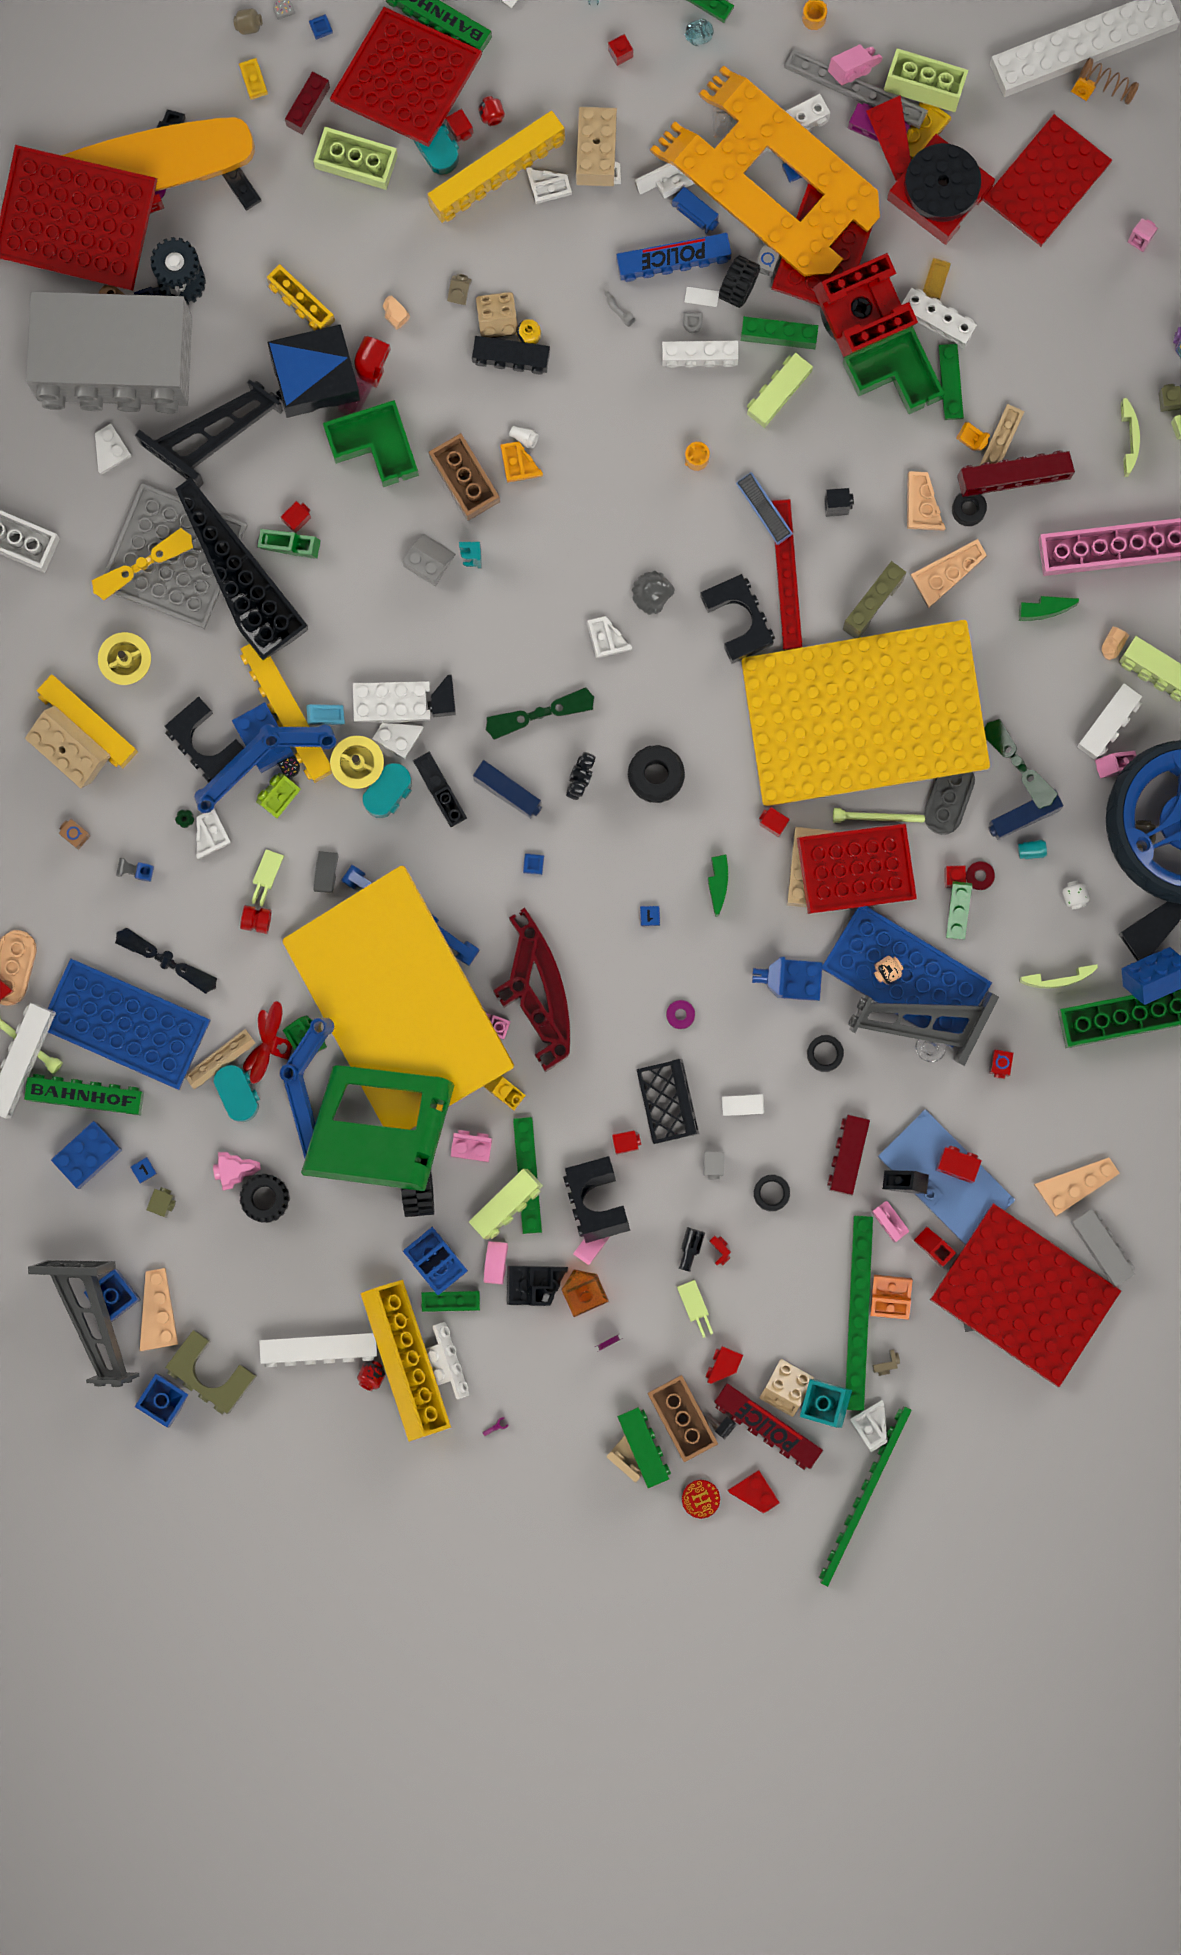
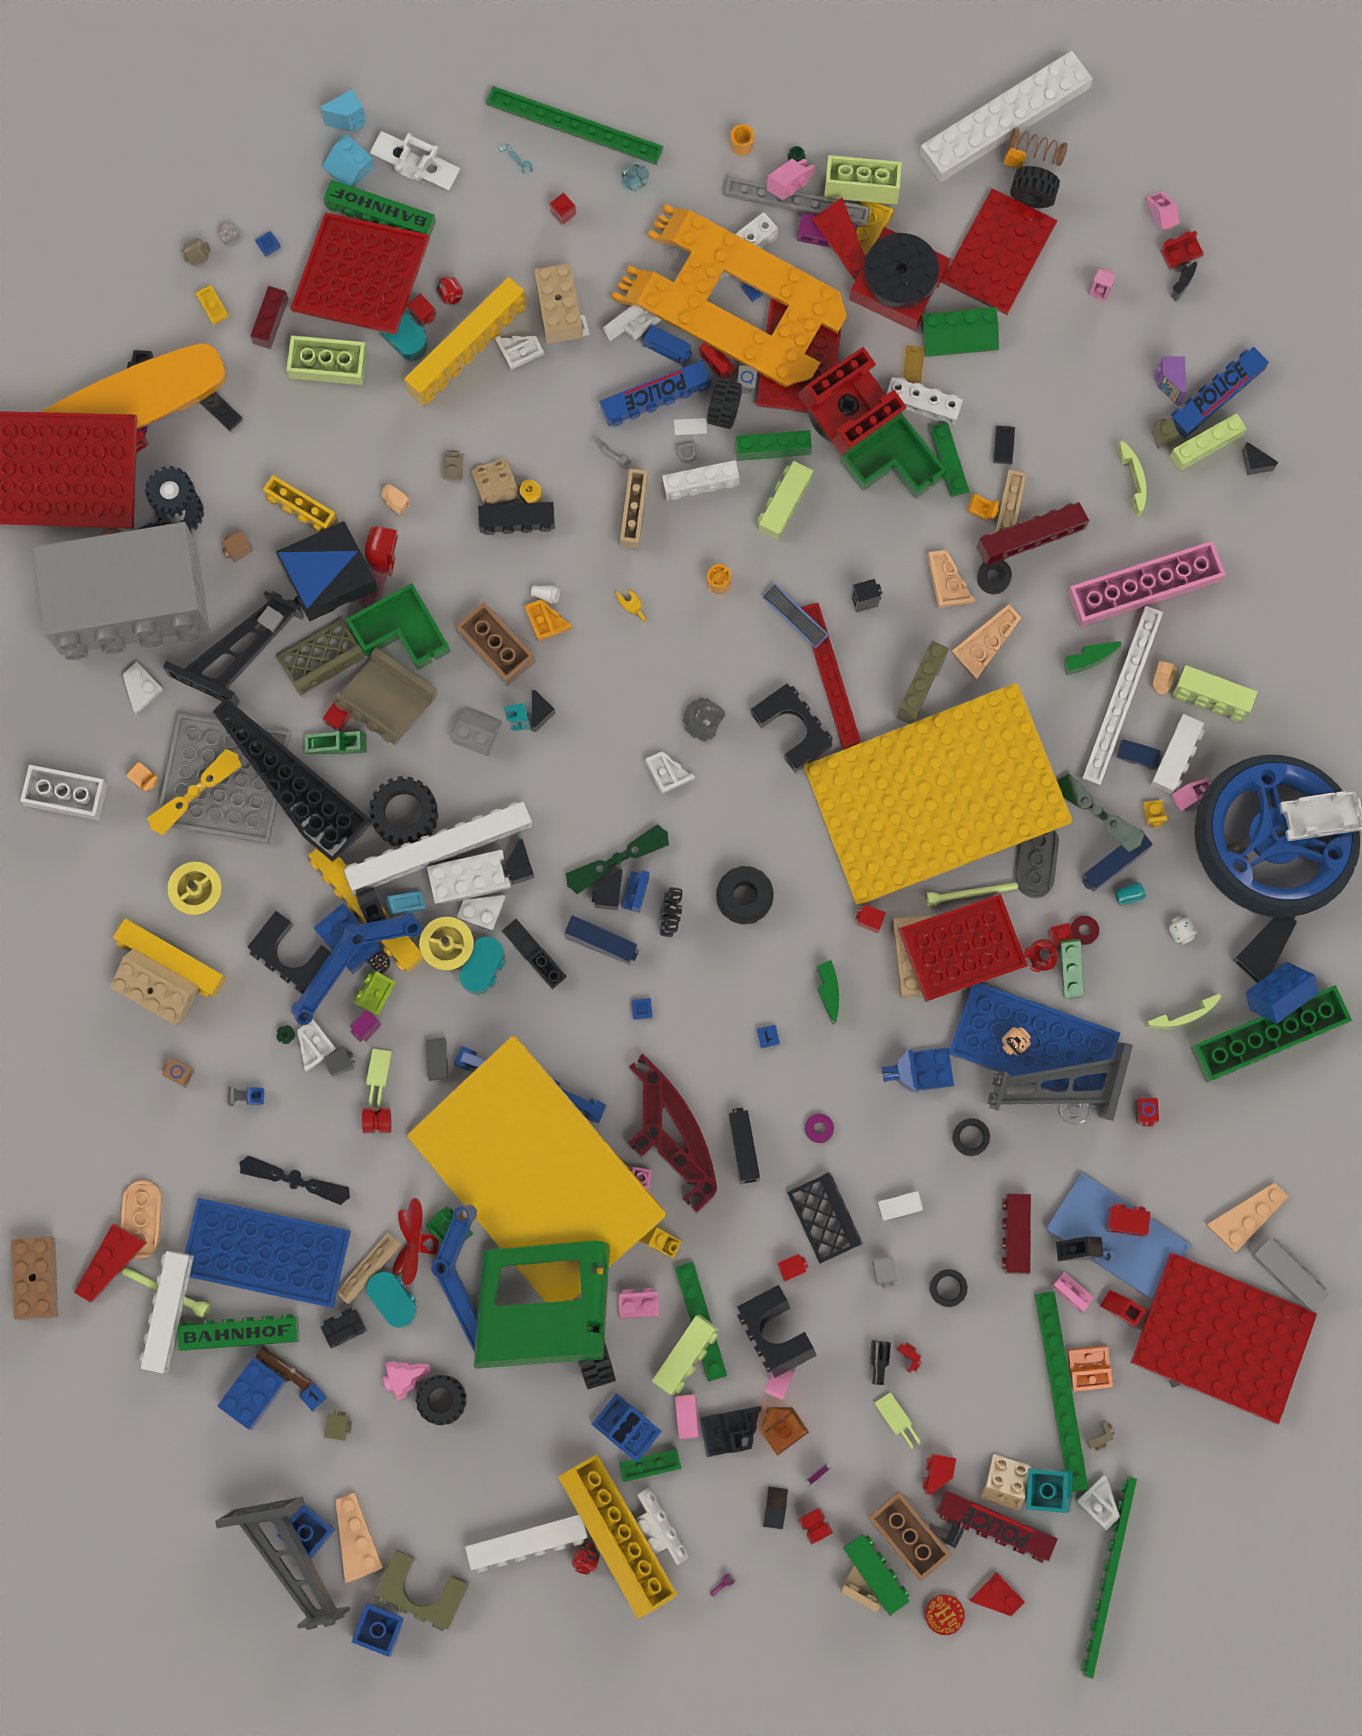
camera: 15 degrees left, 5 degrees down
(94, 538) = (141, 777): none -> light orange bracket
(127, 1144) = (283, 1368): none -> reddish brown pin
(185, 1111) = (343, 1328): none -> black brick
(230, 328) = (236, 546): none -> medium nougat brick
(231, 856) = (339, 1062): none -> dark grey brick
(249, 408) = (270, 619): none -> light grey tile
(262, 826) = (365, 1026): none -> magenta brick
(290, 710) = (370, 906): none -> black slope
(299, 467) = (324, 671): none -> olive fence
(346, 508) = (386, 697): none -> dark tan panel
(350, 646) = (408, 834): none -> black tyre
(367, 667) = (437, 848): none -> white brick
(495, 552) = (541, 711): none -> black slope
(524, 744) = (608, 892): none -> black slope
(551, 748) = (636, 891): none -> blue bracket
(561, 1365) = (775, 1508): none -> black slope
(595, 1390) = (815, 1525): none -> red wheel
(603, 1016) = (744, 1146): none -> black slope
(606, 466) = (632, 606): none -> yellow hand
(628, 369) = (634, 508): none -> tan brick
(741, 236) = (716, 361): none -> red bracket
(866, 36) = (796, 150): none -> dark green plate
(925, 888) = (1038, 963): none -> red piece
(990, 255) = (960, 332): none -> green slope
(1008, 378) = (1004, 445): none -> black tile
(1069, 652) = (1122, 696): none -> white plate
(1072, 714) = (1138, 753): none -> dark blue slope
(1074, 775) = (1154, 813): none -> yellow bracket
(1096, 122) = (1035, 187): none -> black tyre

